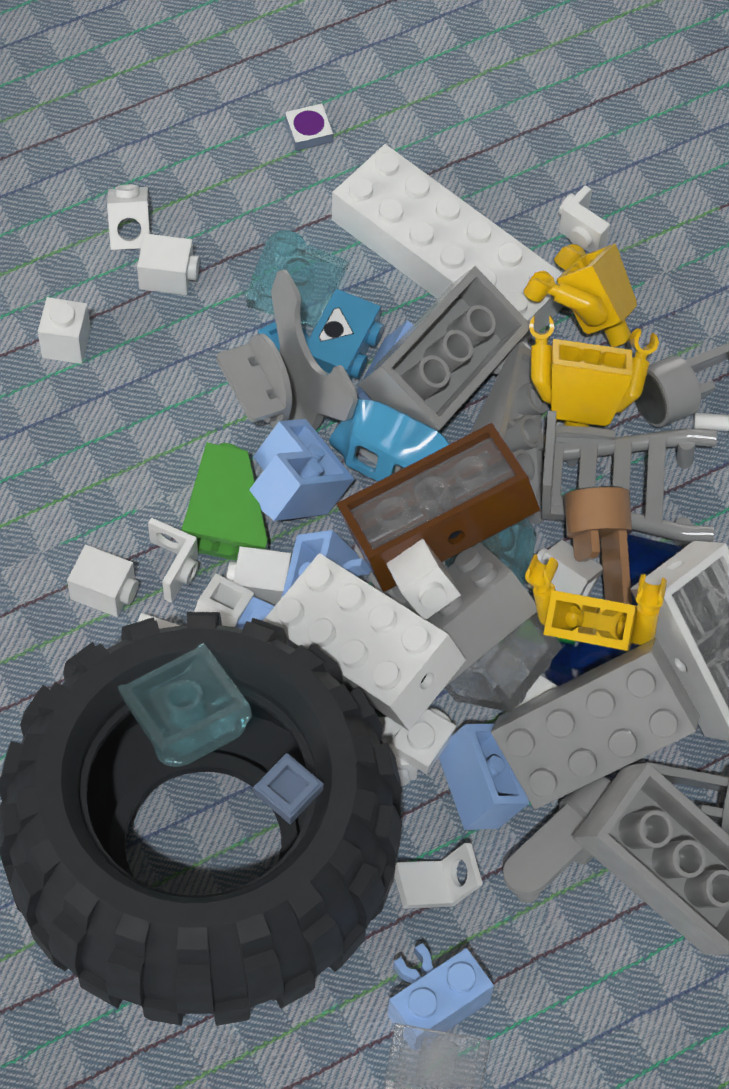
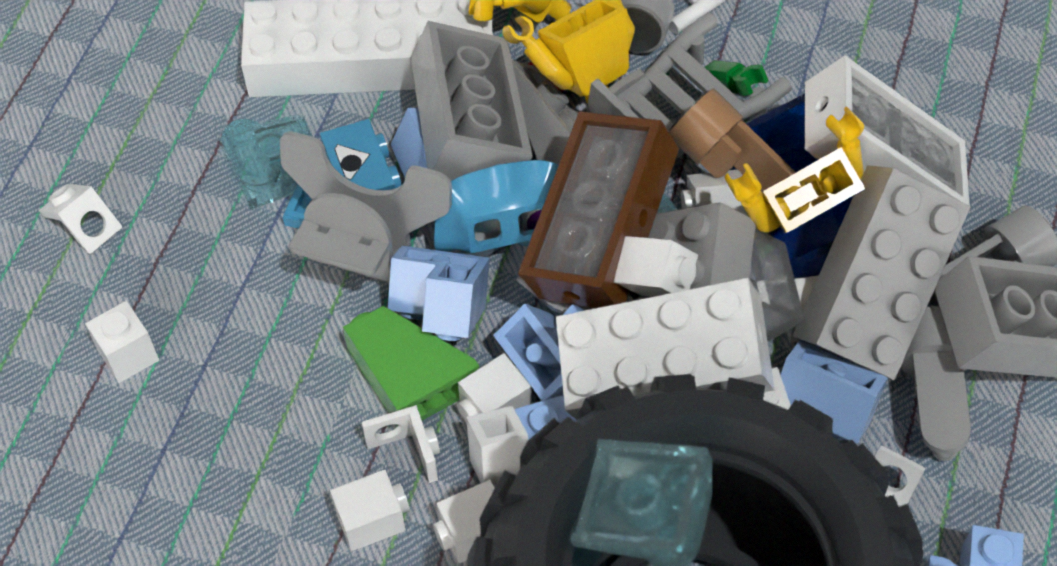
camera: 40 degrees left, 5 degrees down
(167, 264) = (155, 225): white brick -> none
(288, 788) = (793, 496): sand blue tile -> none
(308, 127) = (159, 43): tile -> none
(682, 495) = (737, 76): none -> green bar

